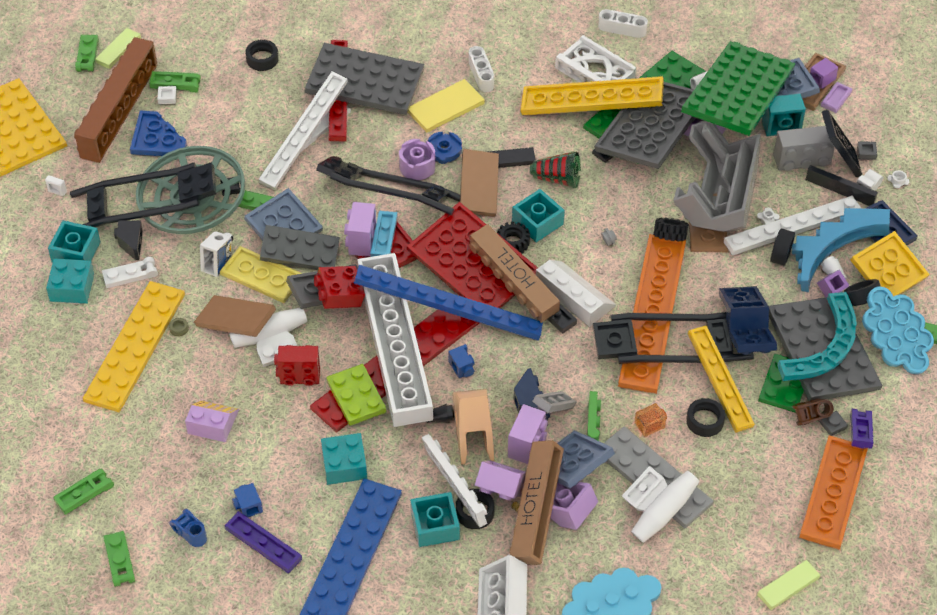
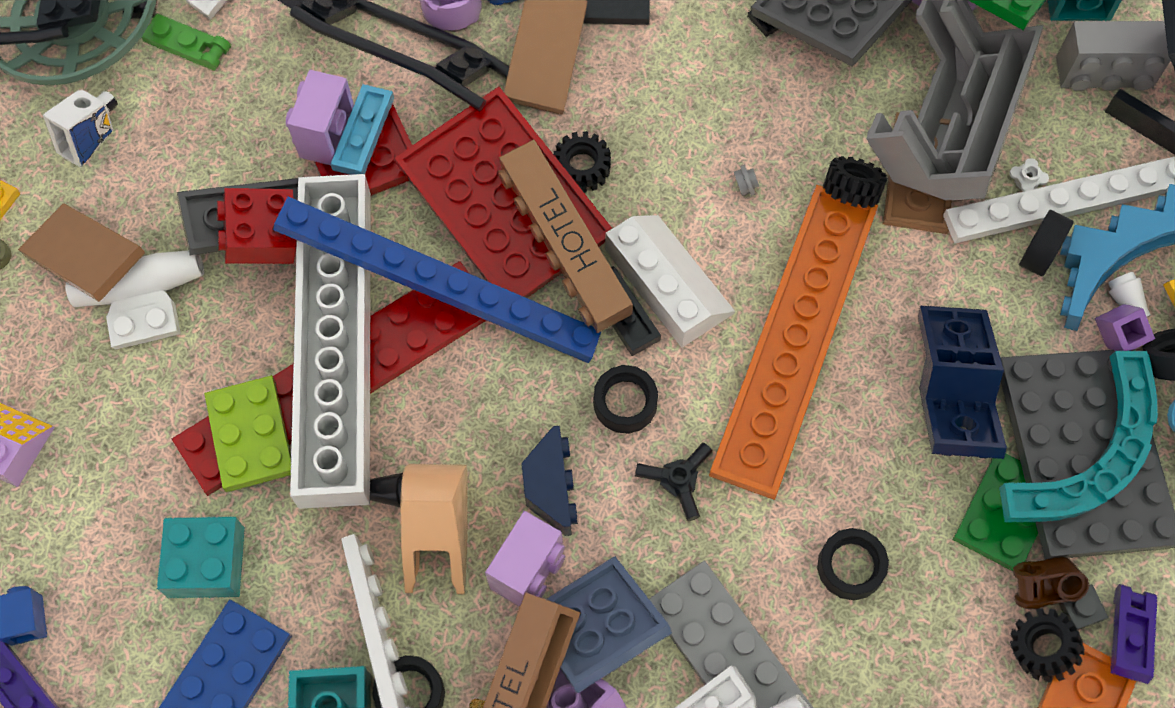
camera: 10 degrees right, 15 degrees up
(259, 275) = (147, 170): light yellow tile -> none
(282, 211) = (204, 84): sand blue plate -> none
(298, 248) = (219, 135): dark grey plate -> none
(298, 365) = (162, 362): red brick -> none
(461, 361) = (446, 390): blue brick -> none
(500, 479) = (459, 650): lavender brick -> none
(538, 214) = (632, 124): teal brick -> none
(554, 402) = (586, 503): light grey plate -> none
(558, 169) = (683, 42): clear green cone -> none
(559, 365) = (627, 374): none -> black tyre
(593, 419) = (652, 542): bright green plate -> none
(603, 388) = (679, 478): none -> black piece
(618, 341) = (721, 385): black plate -> none
(650, 419) = (754, 555): clear orange brick -> none
(720, 379) = (893, 492): yellow tile -> none
(820, 446) = (1050, 665): none -> black tyre

